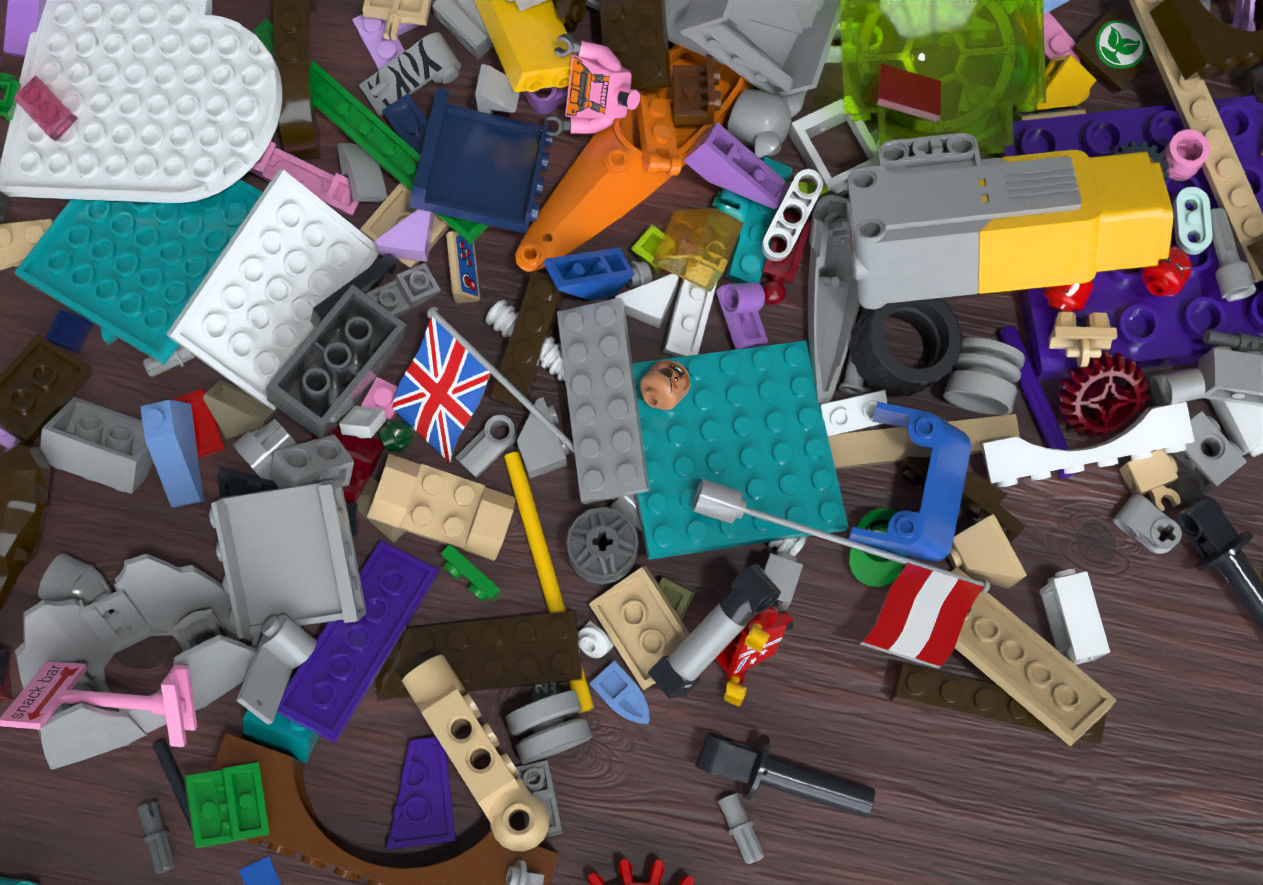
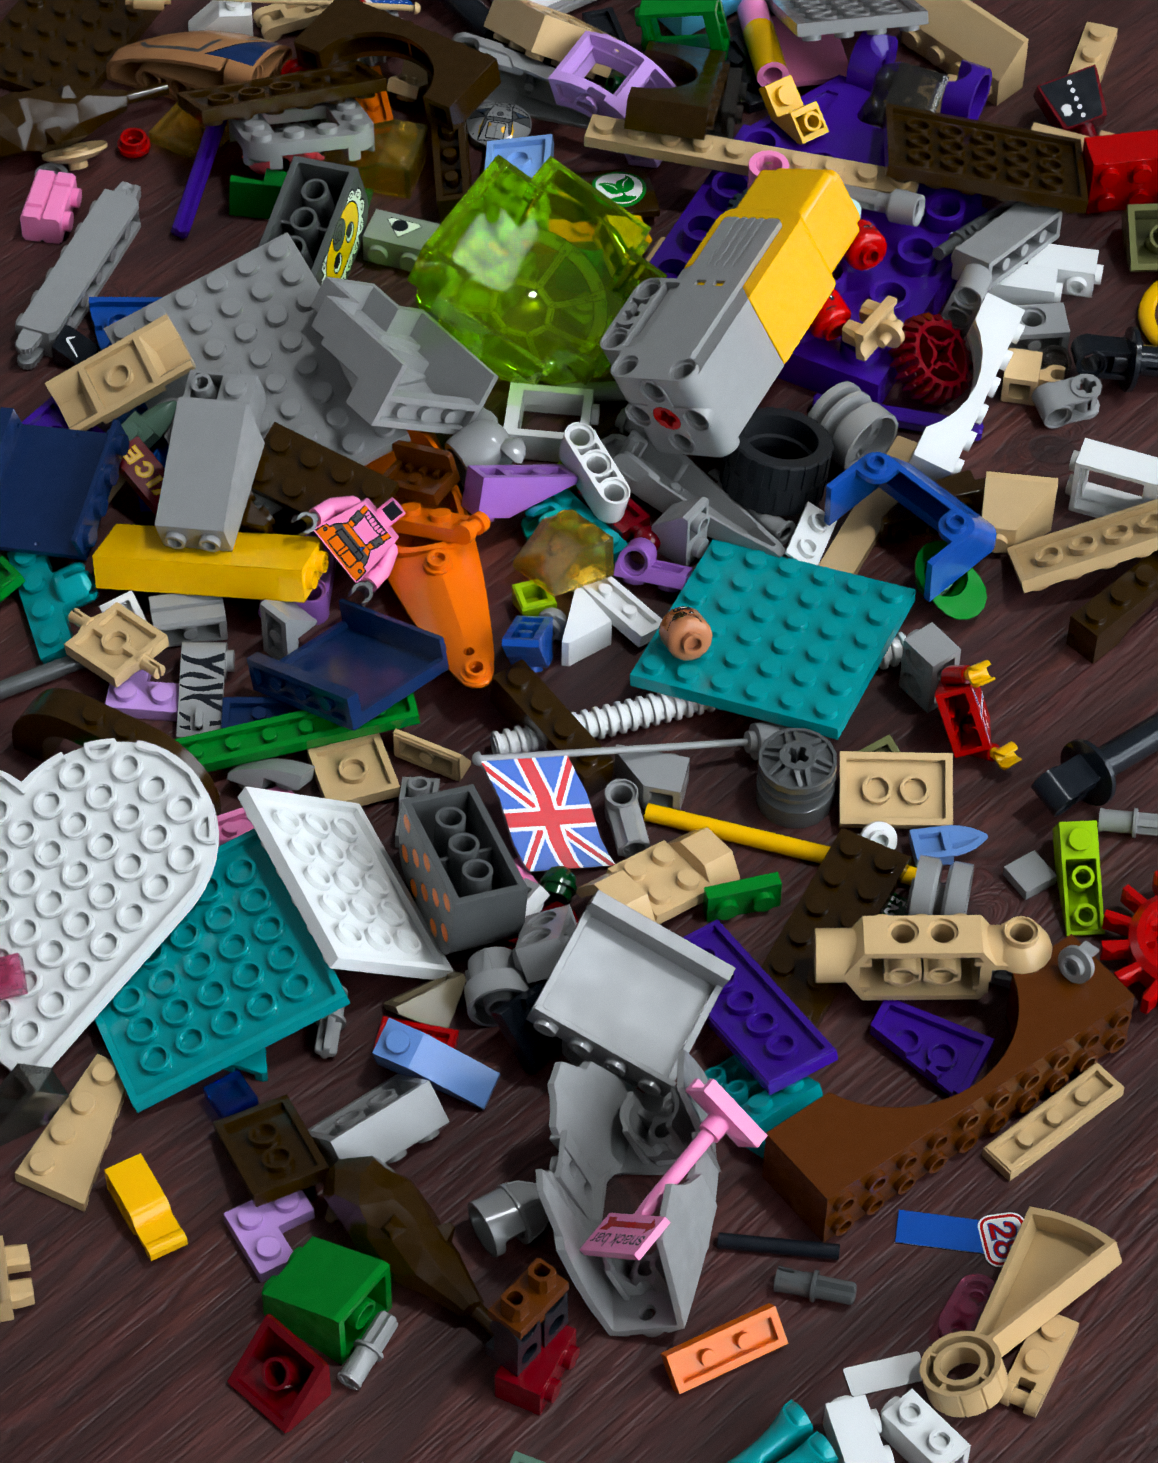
camera: 55 degrees left, 25 degrees down
(61, 805) = (724, 1348): none -> orange plate
(226, 805) = (840, 1162): green slope -> none
(278, 653) = (717, 1054): light grey door -> none
(365, 282) = (390, 836): black tile -> none
(408, 238) = (380, 761): lavender slope -> none
(602, 401) = (661, 693): light grey plate -> none
(639, 774) = (1029, 875): none -> light grey tile
(656, 815) = (1079, 877): none -> lime slope
(750, 595) = (950, 706): piece -> none
(792, 314) = (684, 530): none -> light grey slope
(905, 92) = (561, 319): dark red slope -> none
(921, 608) = (1027, 567): flag -> none

